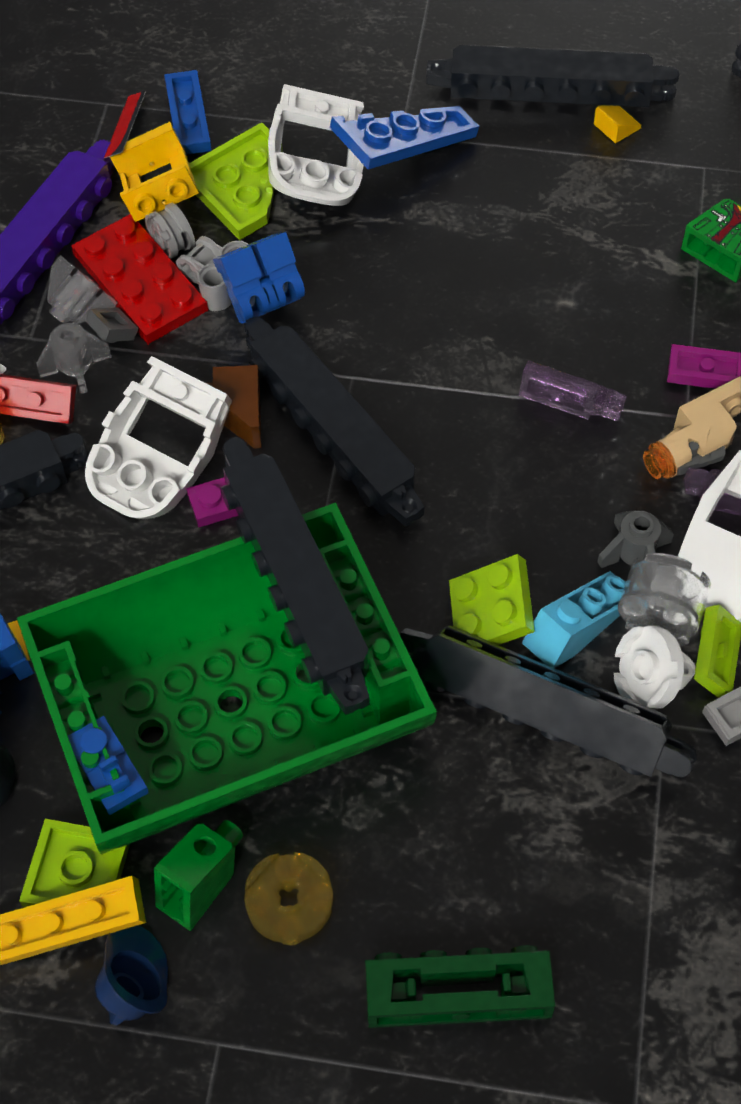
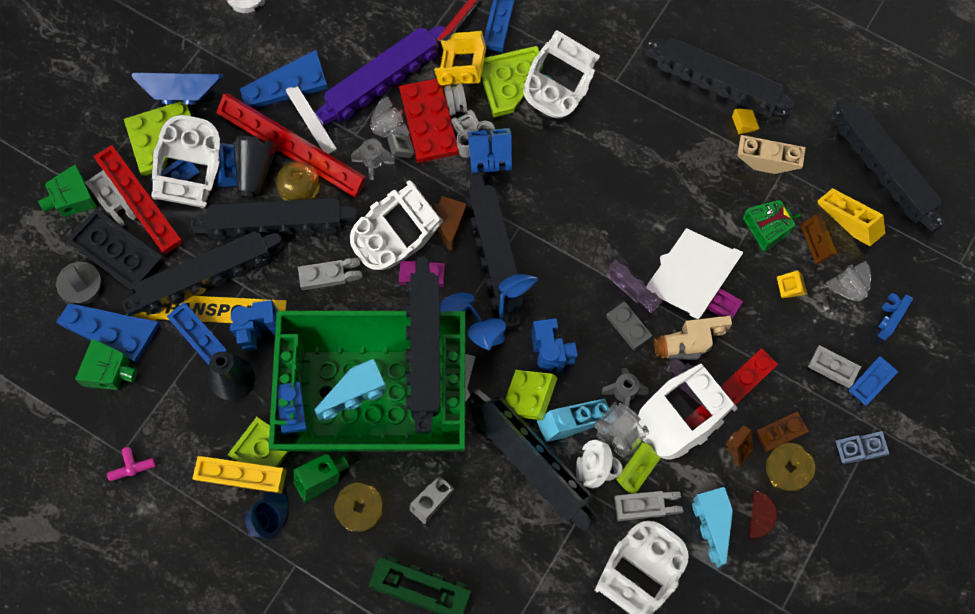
camera: 20 degrees right, 10 degrees up
(74, 551) = (328, 273): none -> light grey hinge
(209, 680) = (356, 386): none -> medium azure slope
(389, 523) = (491, 330): none -> blue plant
(403, 134) = (613, 86): blue wing -> none
(407, 835) = (431, 499): none -> light grey leg
(489, 524) = (551, 353): none -> blue hips
(593, 453) = (629, 326): none -> dark grey plate
(652, 341) = (693, 272): none -> white sticker
(681, 148) = (770, 155): none -> tan slope

